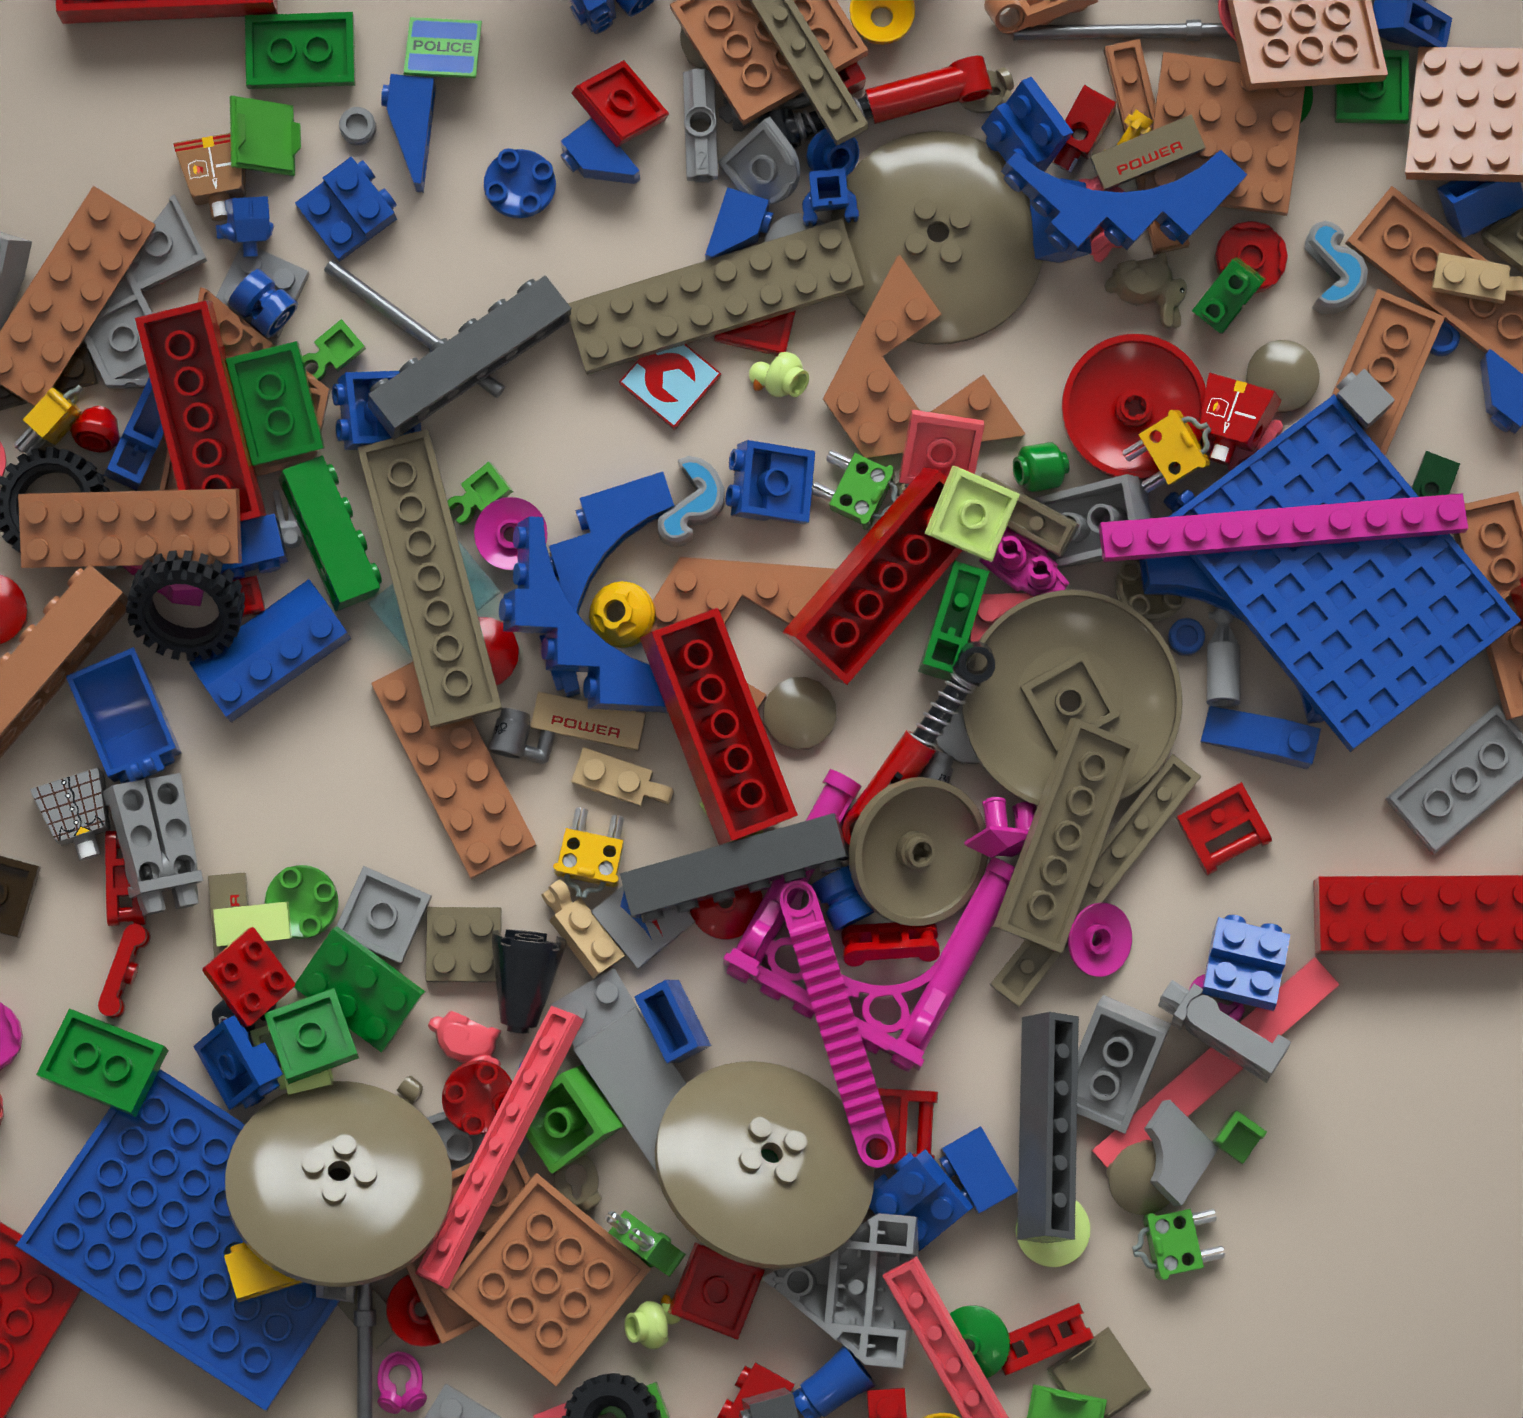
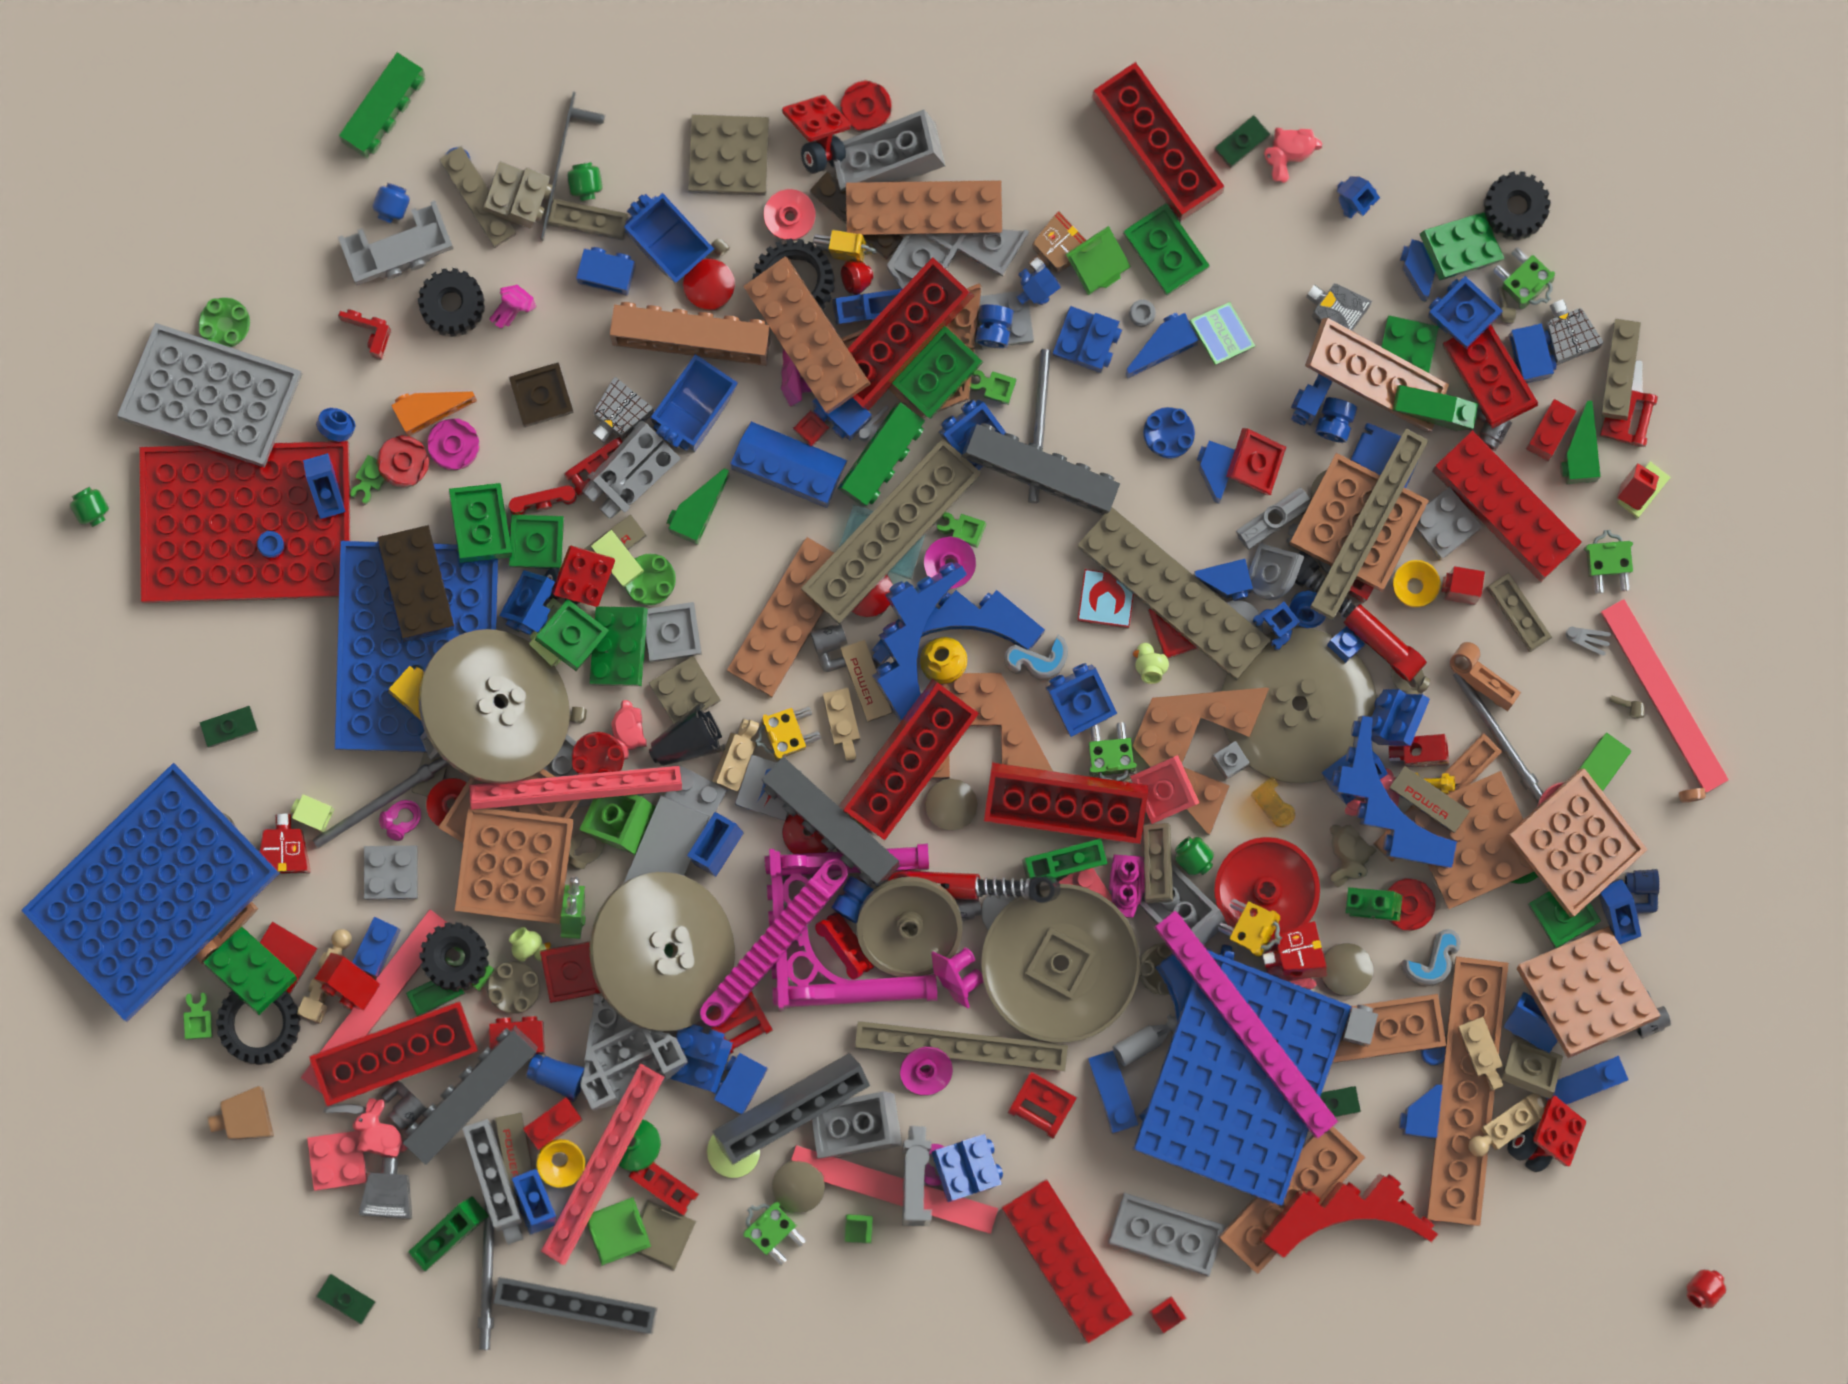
camera: 55 degrees right, 0 degrees up
(127, 1186) = (415, 583): none -> dark brown brick
(168, 1008) = (536, 541): none -> green plate
(193, 573) = (802, 391): black tyre -> none
(255, 796) = (695, 512): none -> green slope
(691, 1372) = (513, 987): none -> dark tan dish
(901, 137) = (1346, 644): none -> blue plate
(954, 354) = (1230, 760): none -> light grey brick
(972, 513) = (1135, 830): yellowish green tile -> none
(1036, 339) = (1278, 812): none -> clear yellow leg
(1066, 835) = (974, 1009): dark tan plate -> none
(1180, 1152) = (827, 1198): light grey tile -> none
(1186, 636) = (1146, 1010): blue tile -> none

